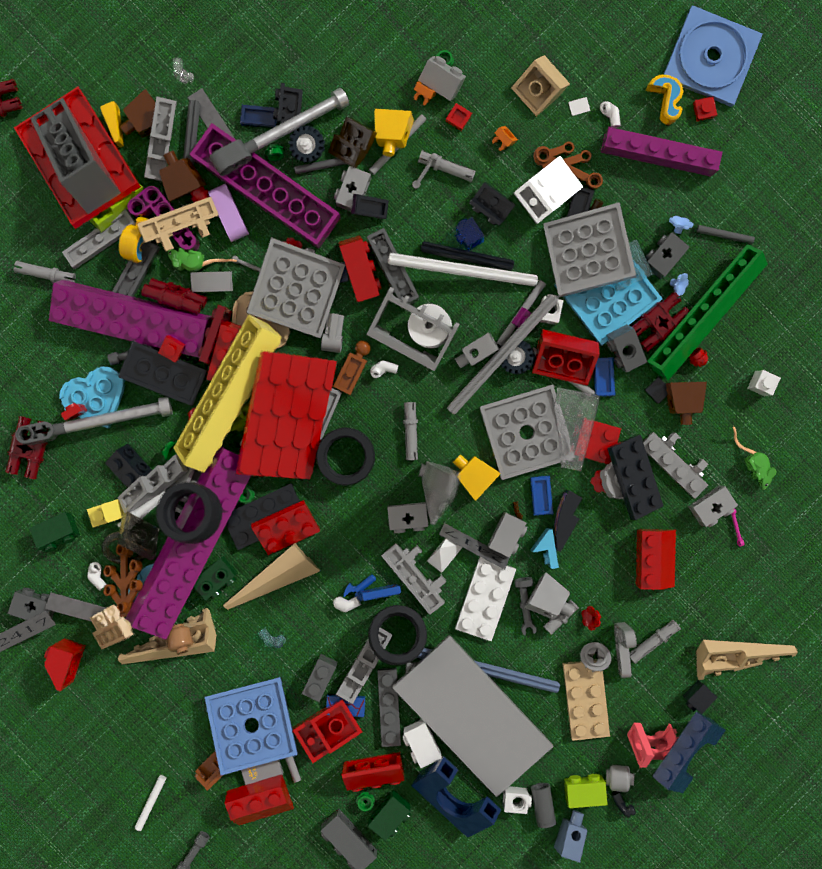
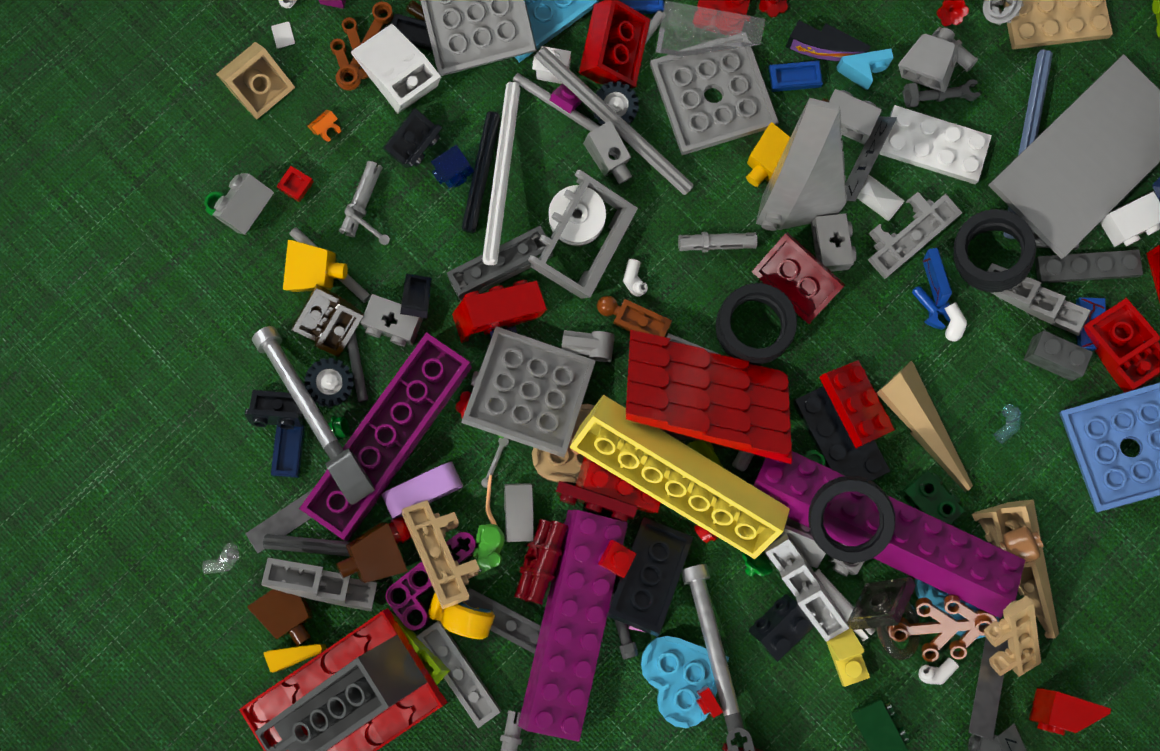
camera: 90 degrees left, 10 degrees down
(380, 489) = (799, 277): none -> dark red plate
(423, 90) = (259, 226): orange tile -> none

